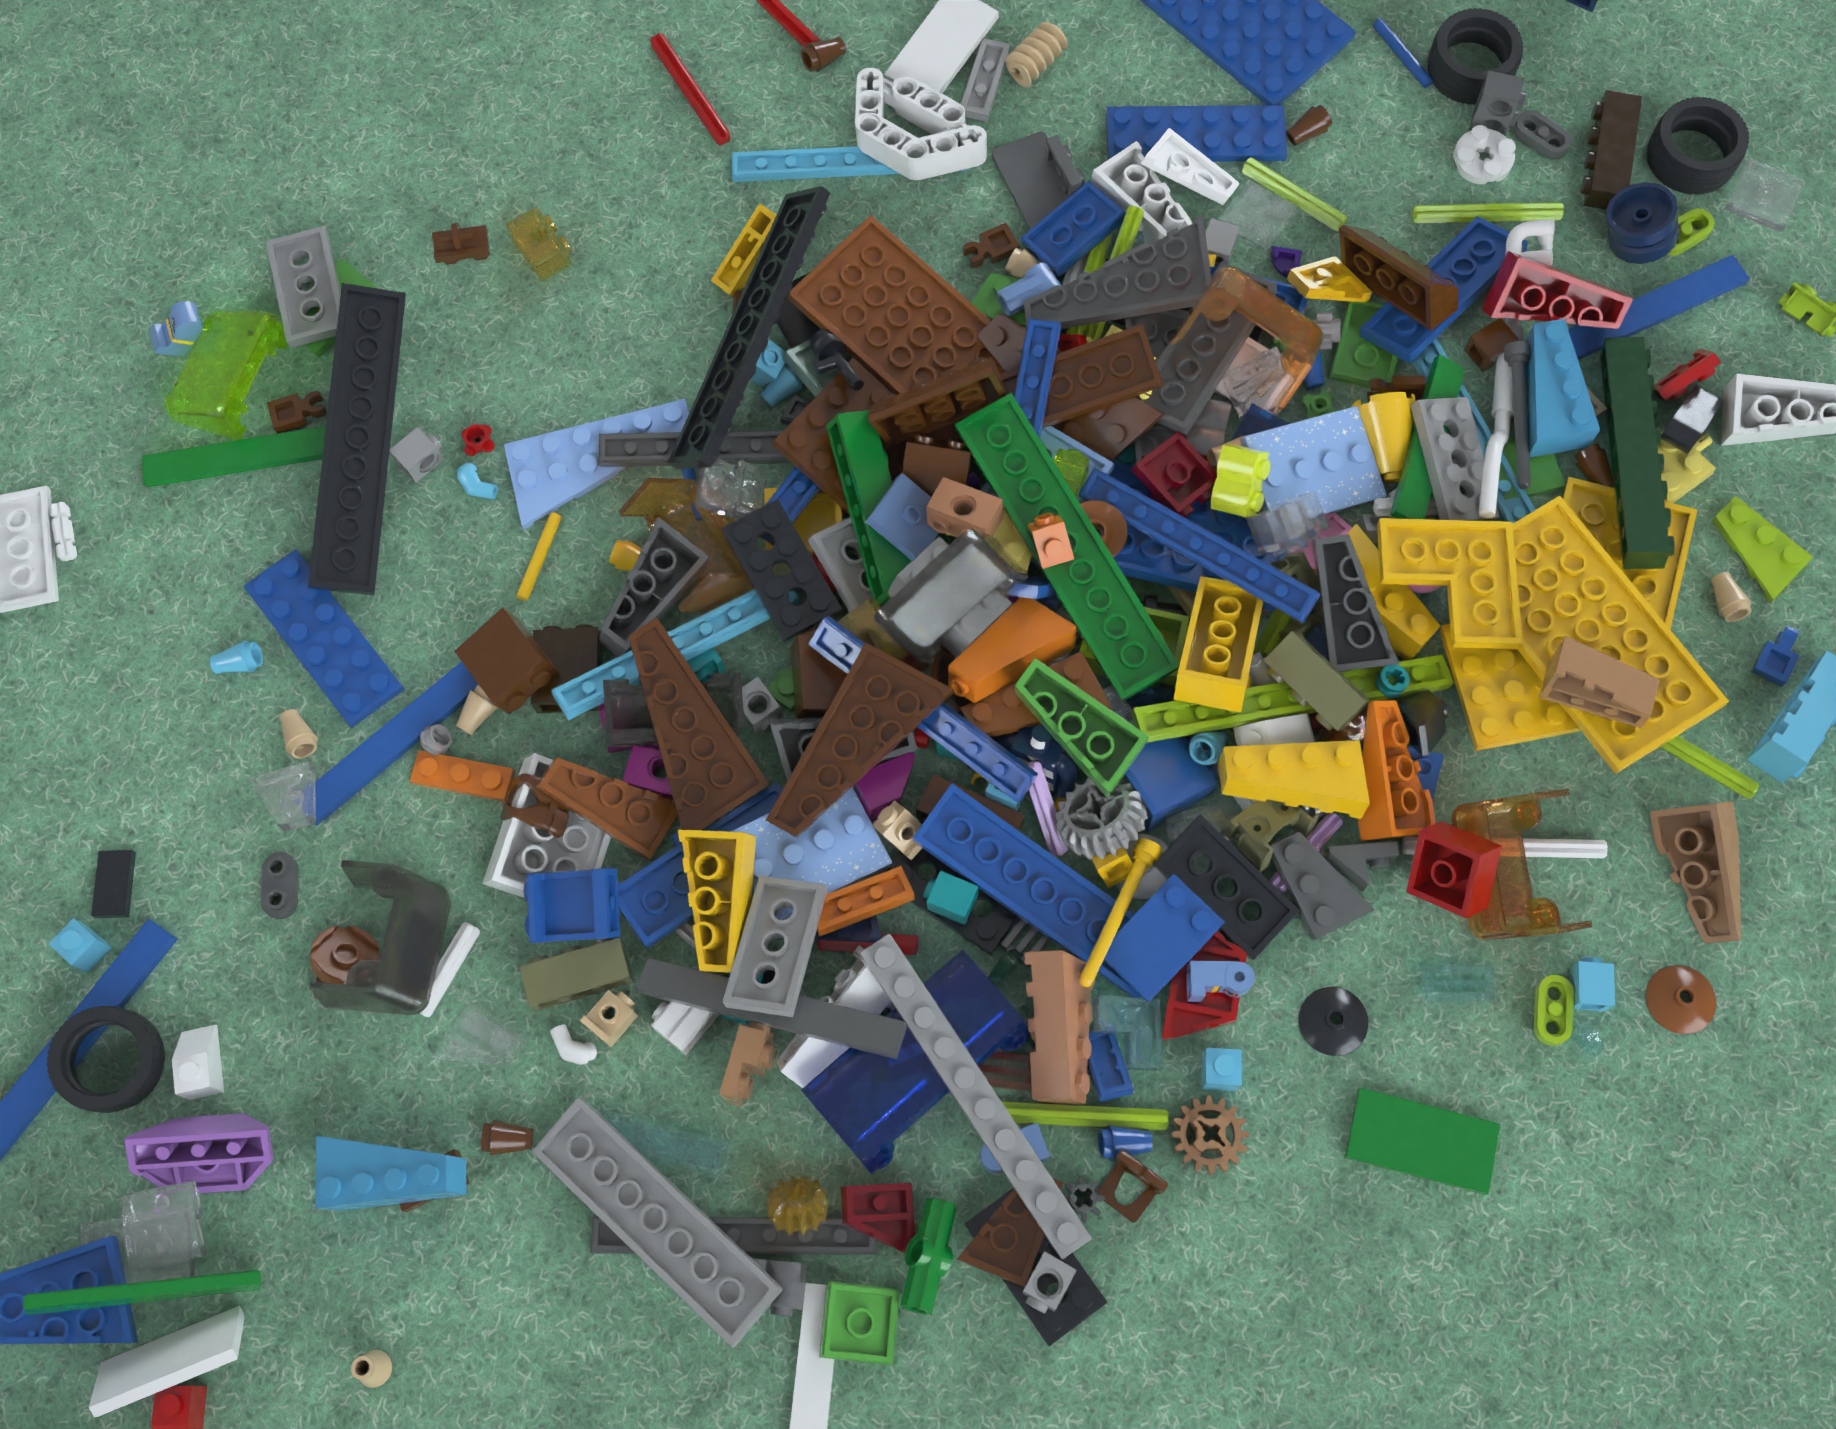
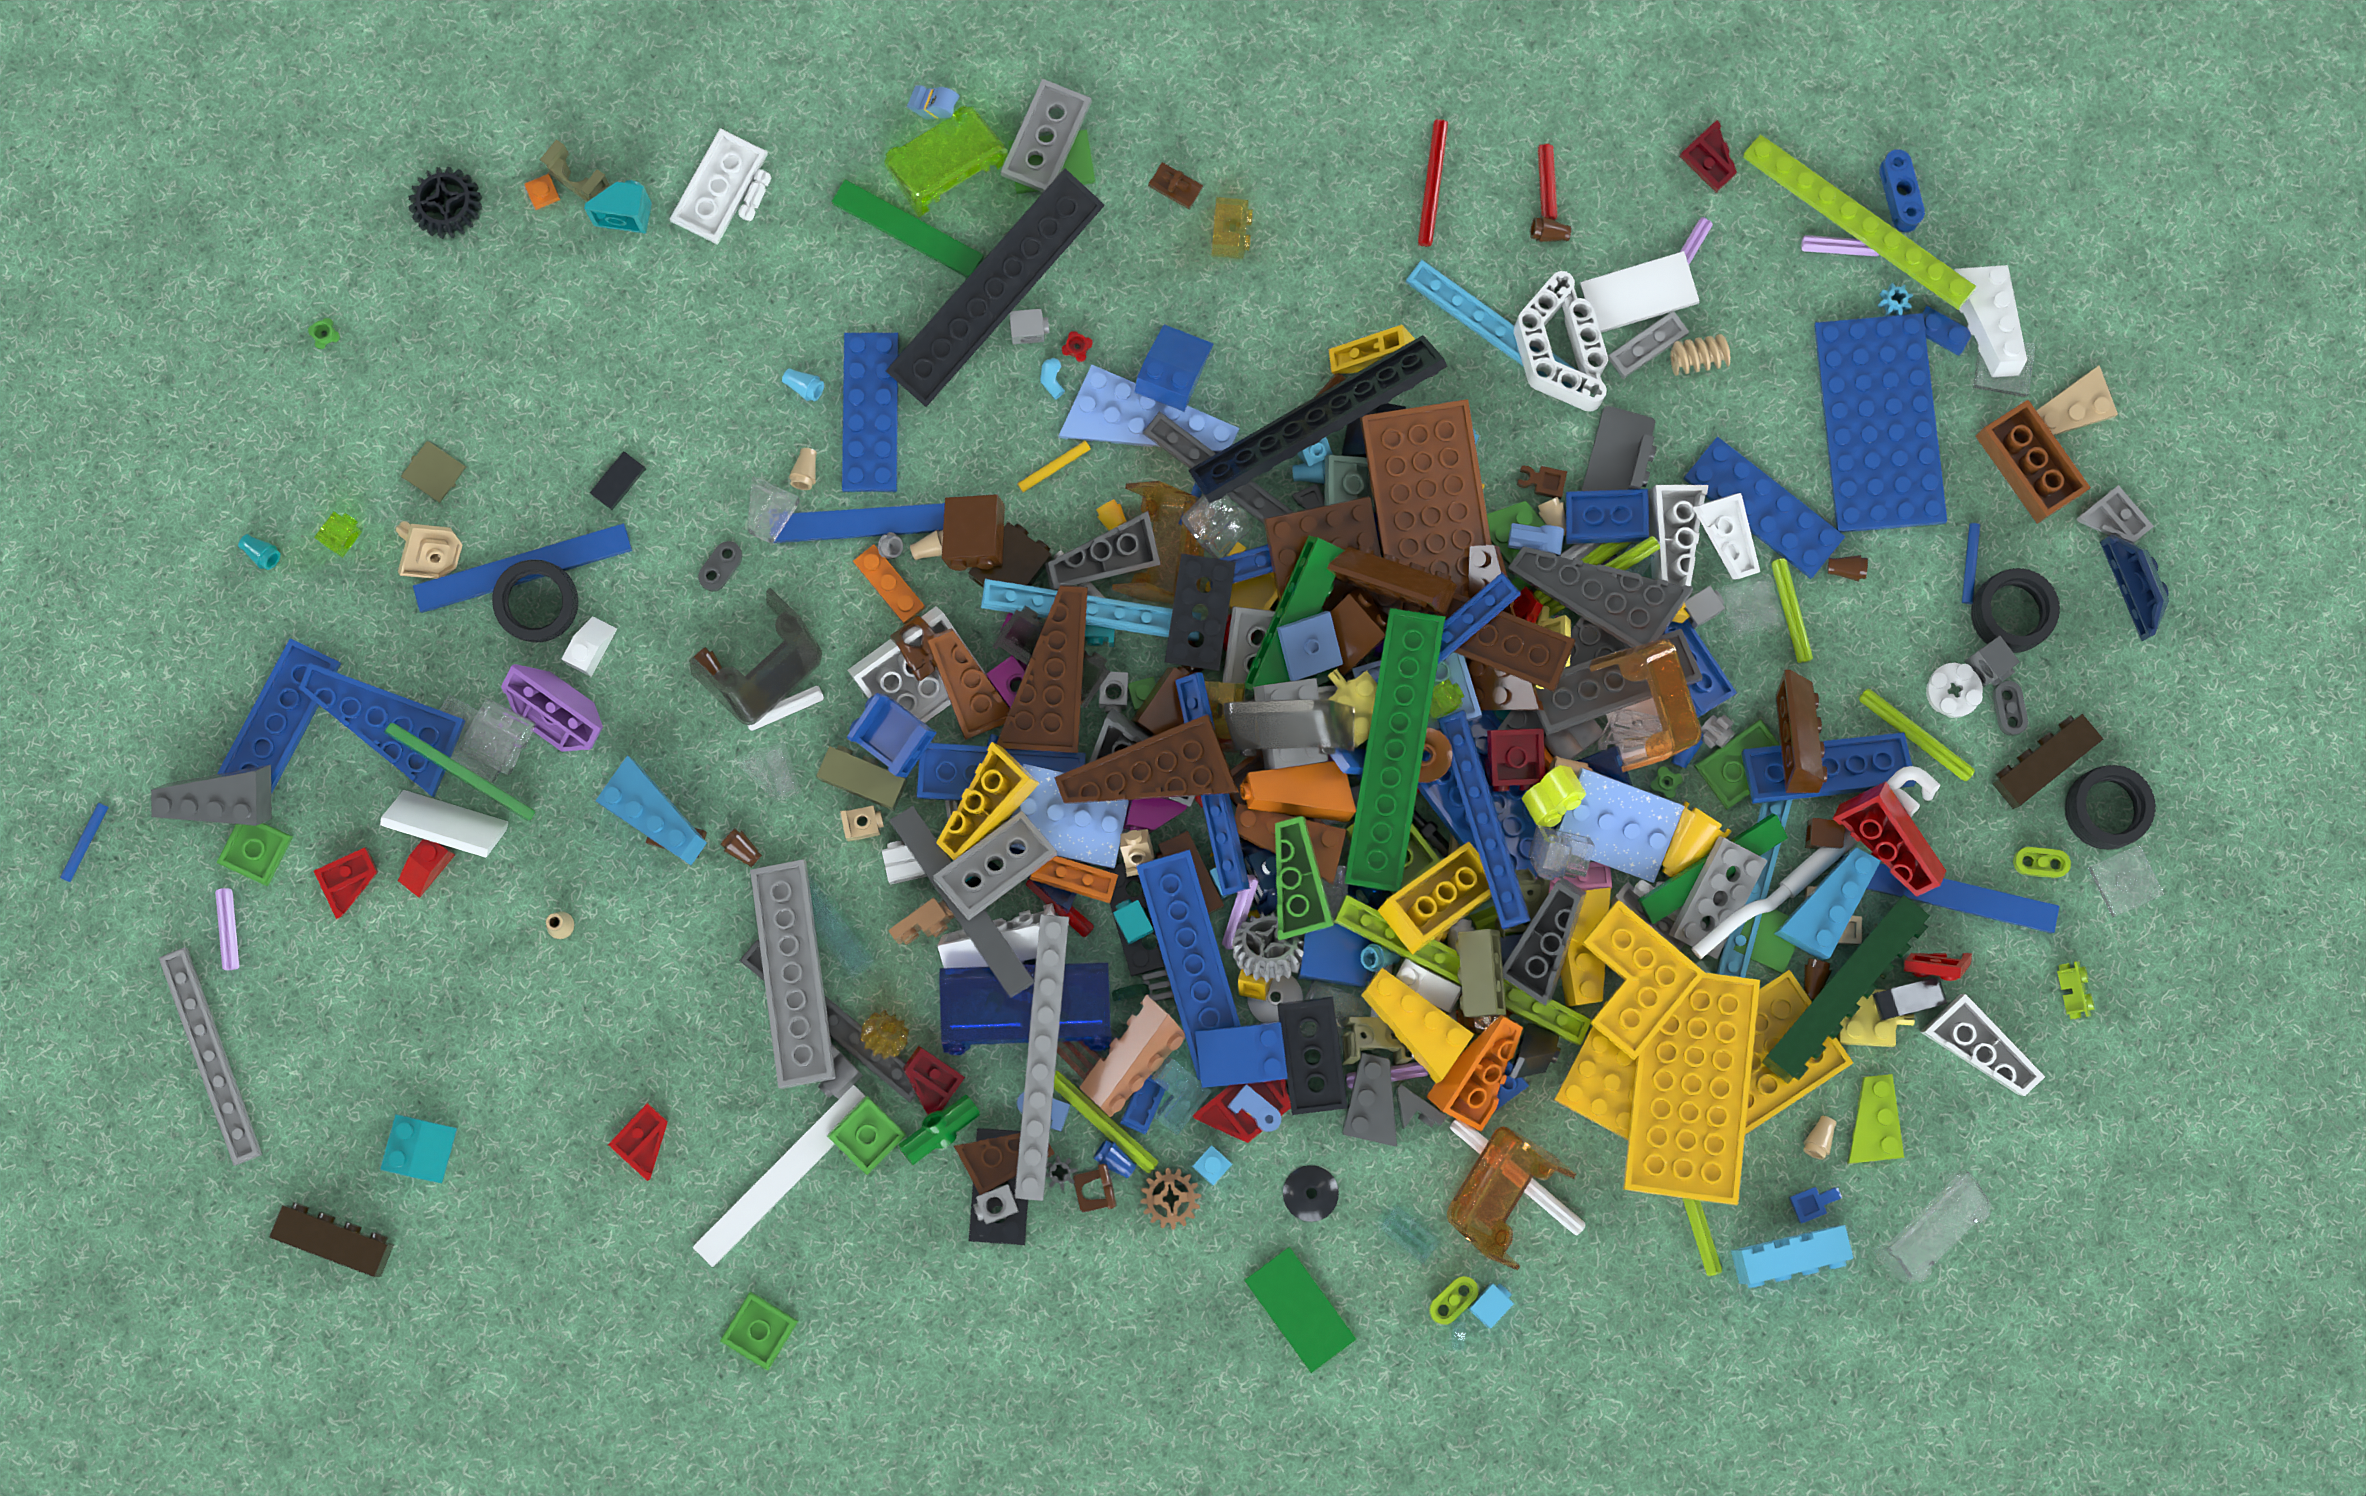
camera: 30 degrees right, 10 degrees up
(80, 945) = (569, 509): medium azure brick -> none
(291, 411) = (967, 224): reddish brown plate -> none
(338, 950) = (726, 647): dark orange tile -> none
(571, 1050) = (822, 824): white arm -> none
(582, 393) = (1173, 367): none -> blue slope
(830, 355) = (1355, 482): black piece -> none
(953, 500) = (1346, 658): nougat brick -> none
(1050, 540) = (1384, 741): orange bracket -> none
(1144, 855) = (1276, 994): yellow piece -> none
(1285, 259) = (1741, 657): dark purple tile -> none
(1328, 281) = (1753, 697): yellow wing -> none
(1401, 676) = (1536, 1019): teal bush -> none
(1408, 384) = (1729, 816): reddish brown plate -> none
(1453, 869) = (1463, 1163): red brick -> none
(1516, 355) = (1828, 859): dark grey piece -> none
(1598, 684) = (1658, 1126): medium nougat wedge -> none
(1642, 223) = (2010, 833): dark blue wheel -> none
(1668, 1008) = (1528, 1355): dark orange dish -> none
(1705, 858) = (1641, 1285): medium nougat wedge -> none

